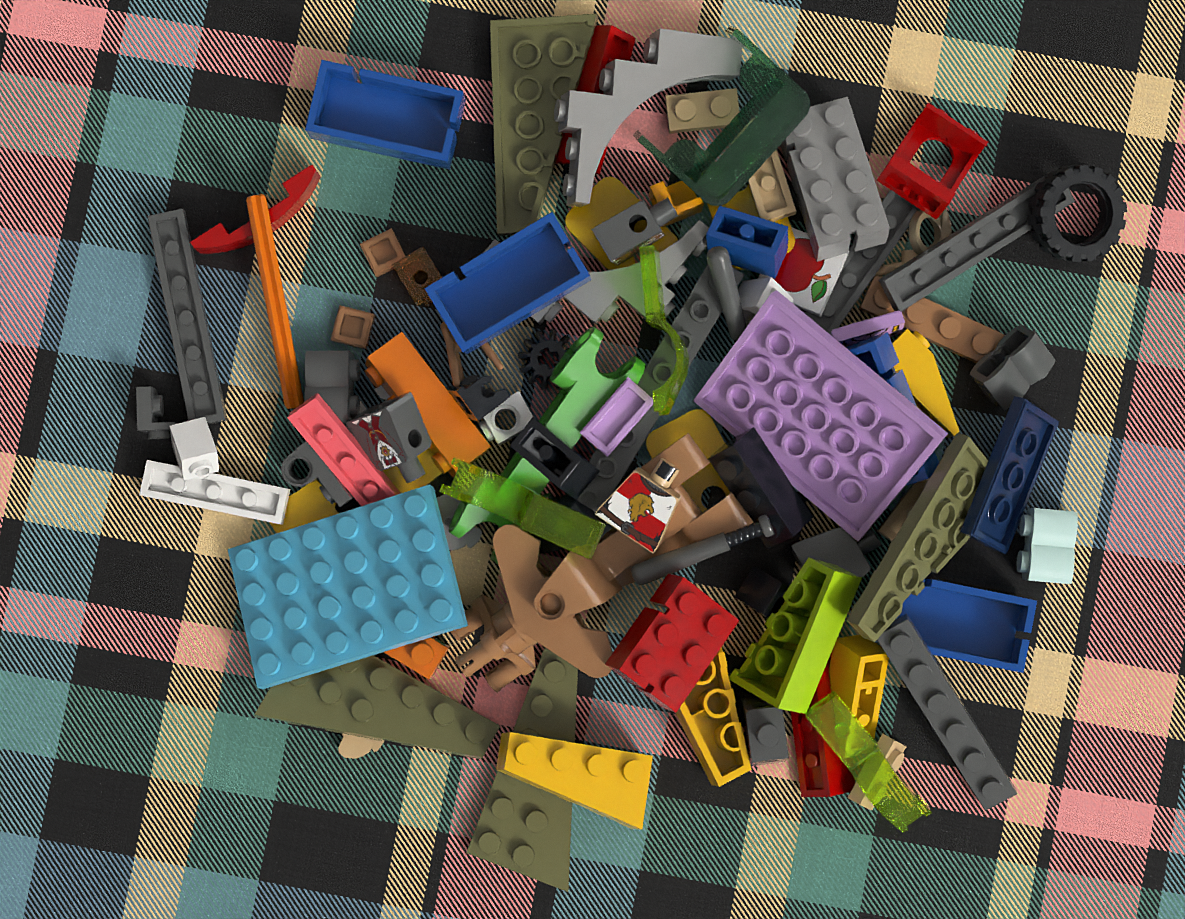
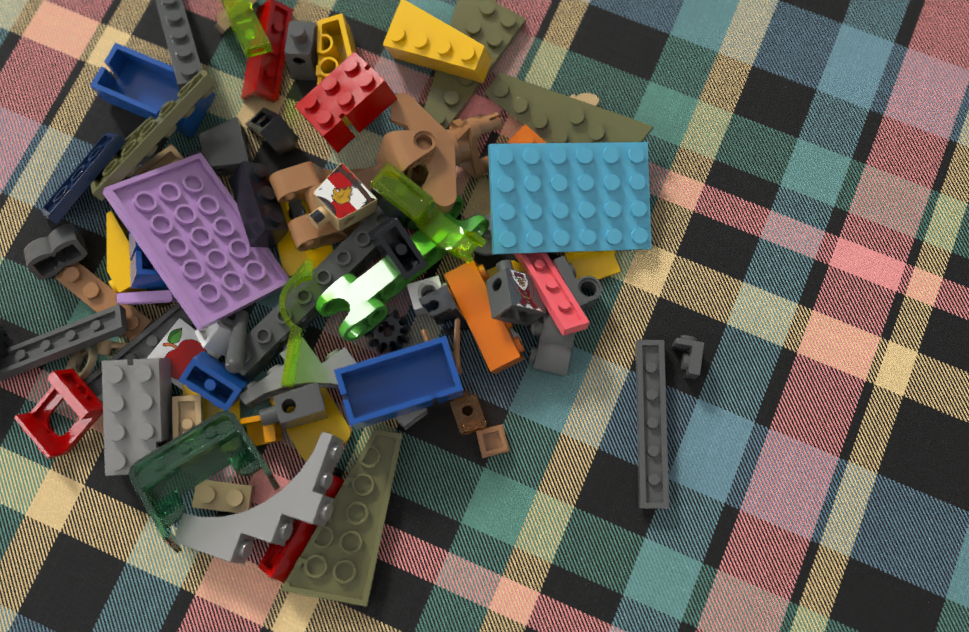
camera: 160 degrees left, 10 degrees down
(194, 448) = (663, 320): white brick -> none
(215, 493) = (654, 290): white plate -> none
(275, 300) = (582, 420): orange axle -> none
(298, 187) = (613, 478): red slope -> none
(353, 327) = (527, 389): medium nougat tile -> none
(385, 114) = (465, 546): blue piece -> none
(617, 417) = (344, 269): lavender tile -> none
(688, 555) = (311, 163): dark grey piece -> none
(799, 637) = (260, 93): lime wedge -> none
(858, 677) = (230, 70): yellow slope -> none
(1048, 545) = (74, 129): light aqua brick -> none

